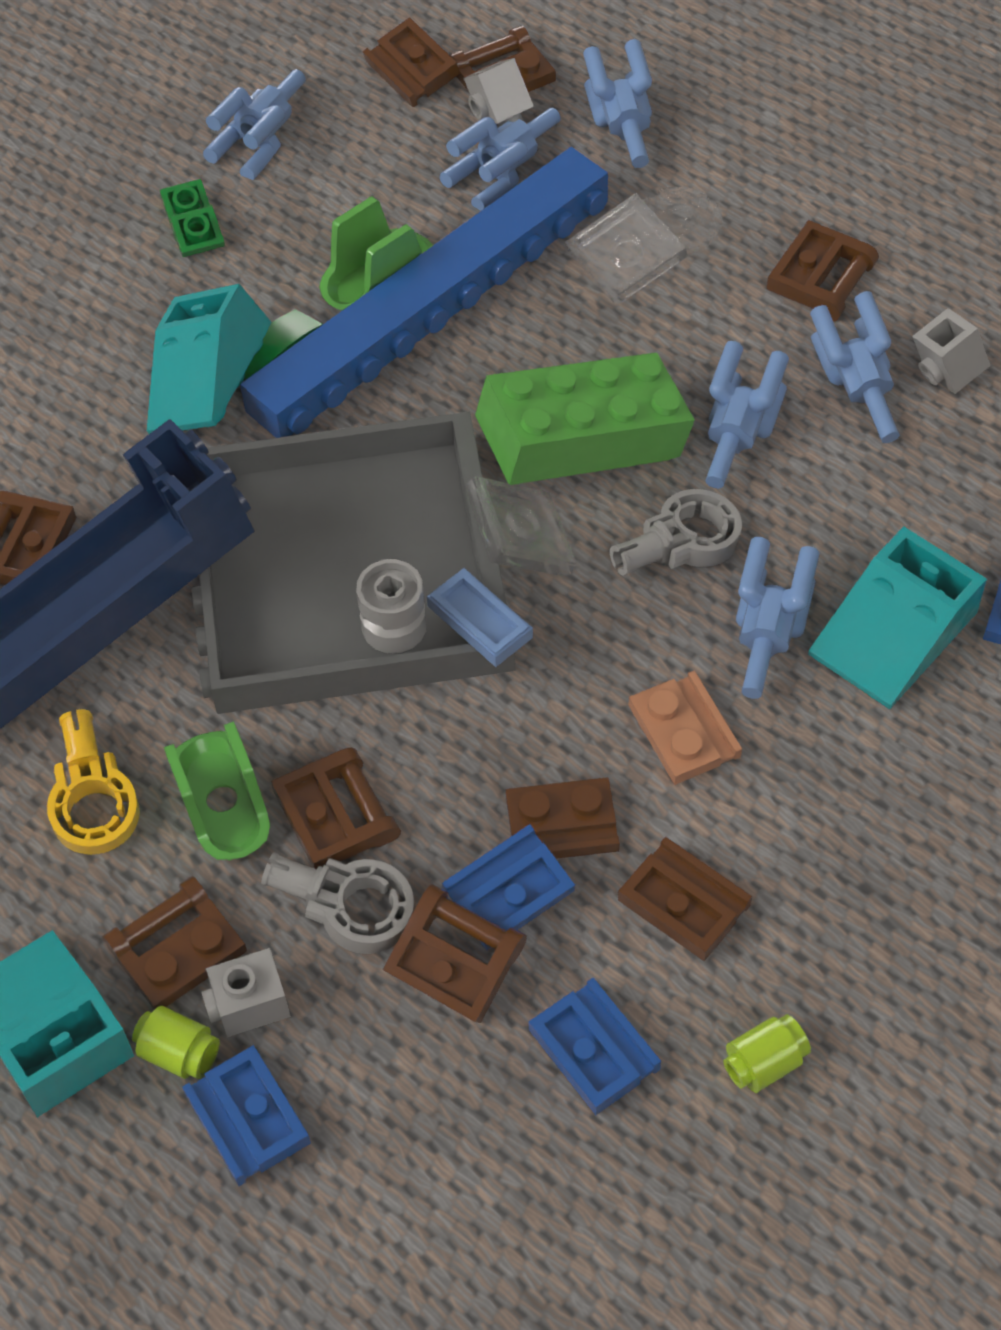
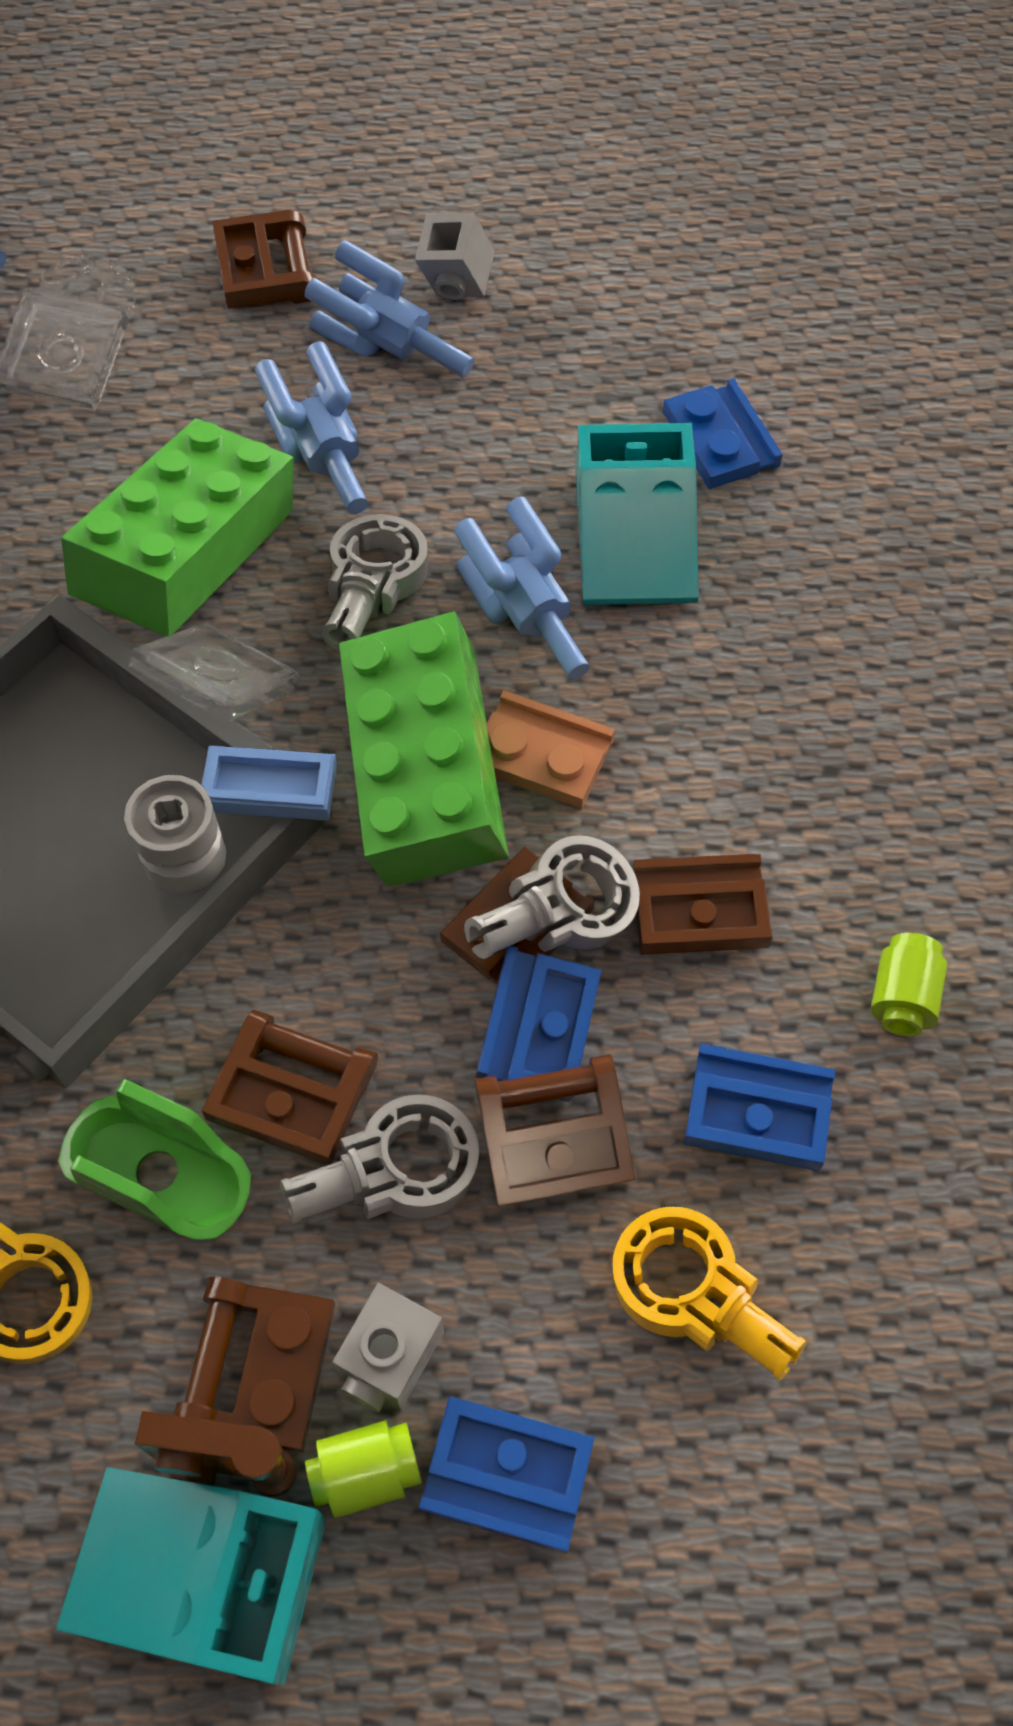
camera: 45 degrees left, 5 degrees up
(104, 961) = (201, 1448): none -> reddish brown plate
(449, 1122) = (694, 1313): none -> yellow pin
(577, 836) = (546, 906): none -> light grey pin
(597, 667) = (421, 751): none -> bright green brick

